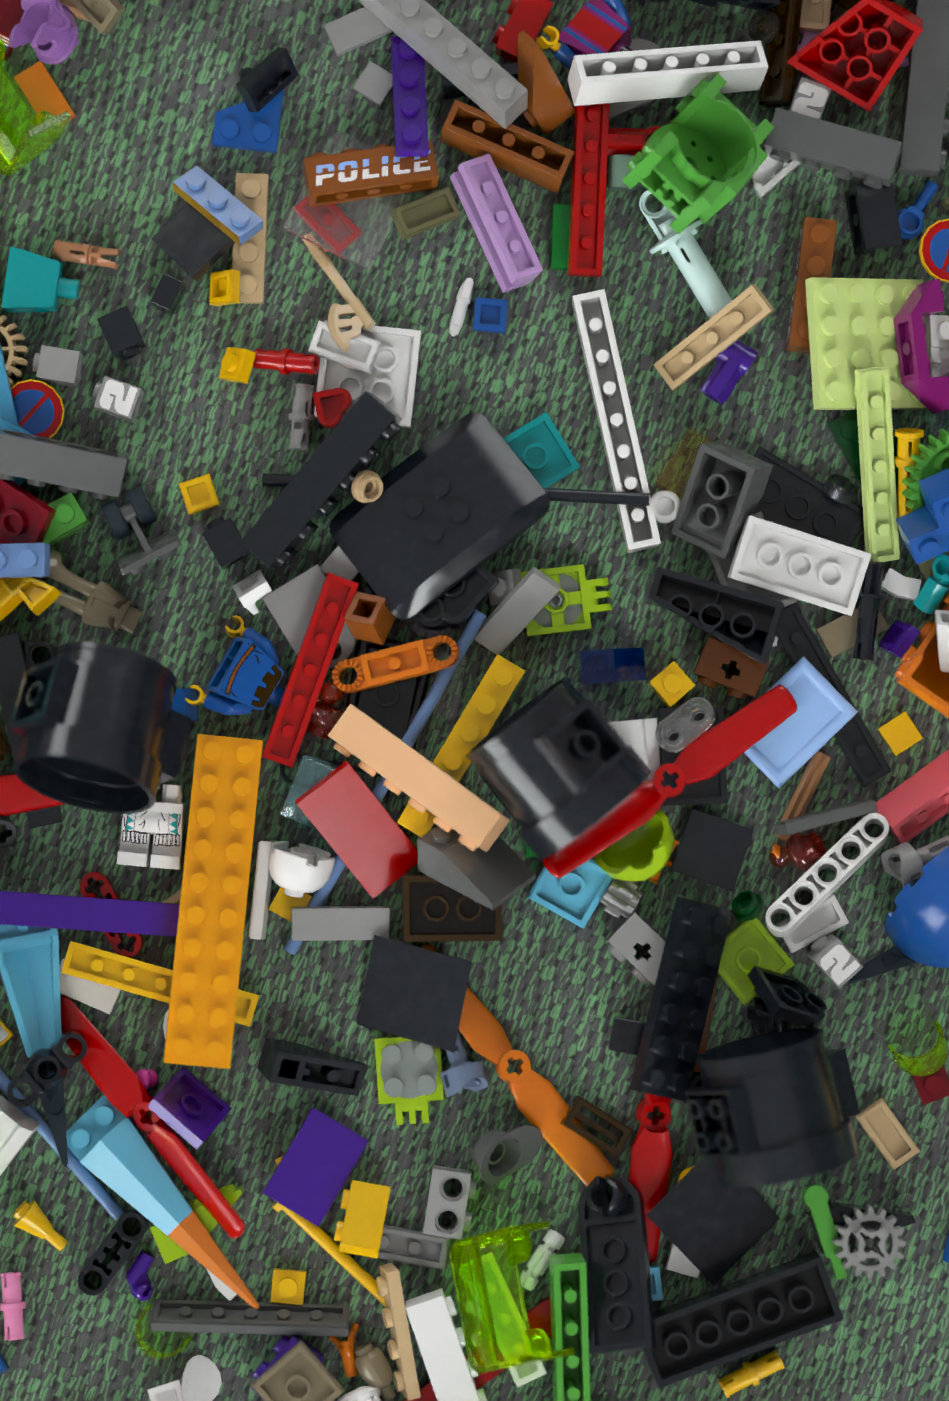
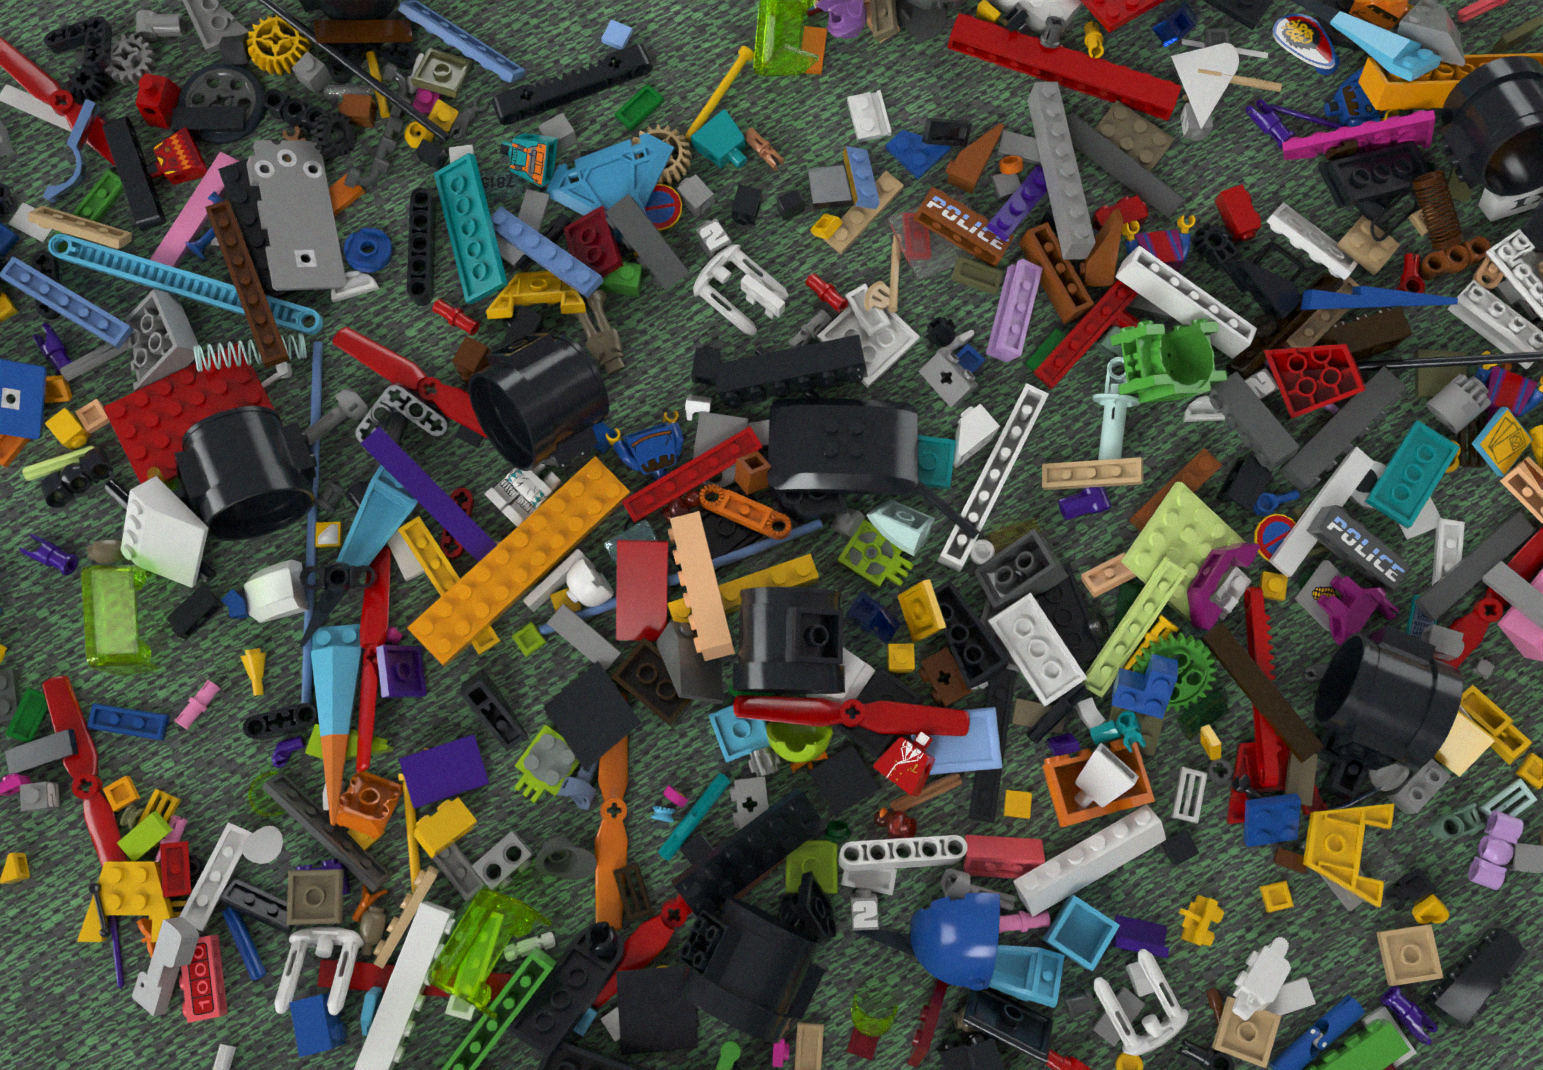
camera: 40 degrees right, 10 degrees down
(119, 520) = (658, 308): plate -> none
(150, 429) = (716, 269): none -> white piece
(167, 124) = (869, 116): none -> white plate
(199, 494) = (714, 328): yellow tile -> none
(212, 422) = (758, 292): none -> white plate
(237, 365) = (797, 273): yellow plate -> none
(269, 1258) = (368, 803): none -> orange slope
(285, 969) = (529, 639): none -> lime tile
(319, 90) = (971, 161): none -> dark orange slope
(331, 406) = (832, 331): red tile -> none
(363, 59) = (1011, 164): none -> orange tile
(367, 486) = (816, 398): tan plate -> none
(438, 307) = (941, 332): none -> black gear
(497, 364) = (937, 372): none -> light grey brick
(516, 611) = (842, 538): light grey tile -> none
(558, 393) = (973, 433): none -> white slope
(562, 546) = (901, 525): none -> light aqua slope
(562, 1002) = (675, 796): none -> dark pink tile
(564, 1029) = (663, 815): none -> medium azure bush
(596, 1006) = (694, 816): none -> teal axle
(654, 620) = (921, 611): none -> yellow tile
(683, 723) = (889, 687): clear plate -> none
(763, 784) = (907, 763): none -> red torso
(808, 430) = (1107, 576): none -> light nougat plate
(825, 817) = (930, 816): dark grey tile -> none
(864, 1159) = (780, 1053): none -> dark pink plate

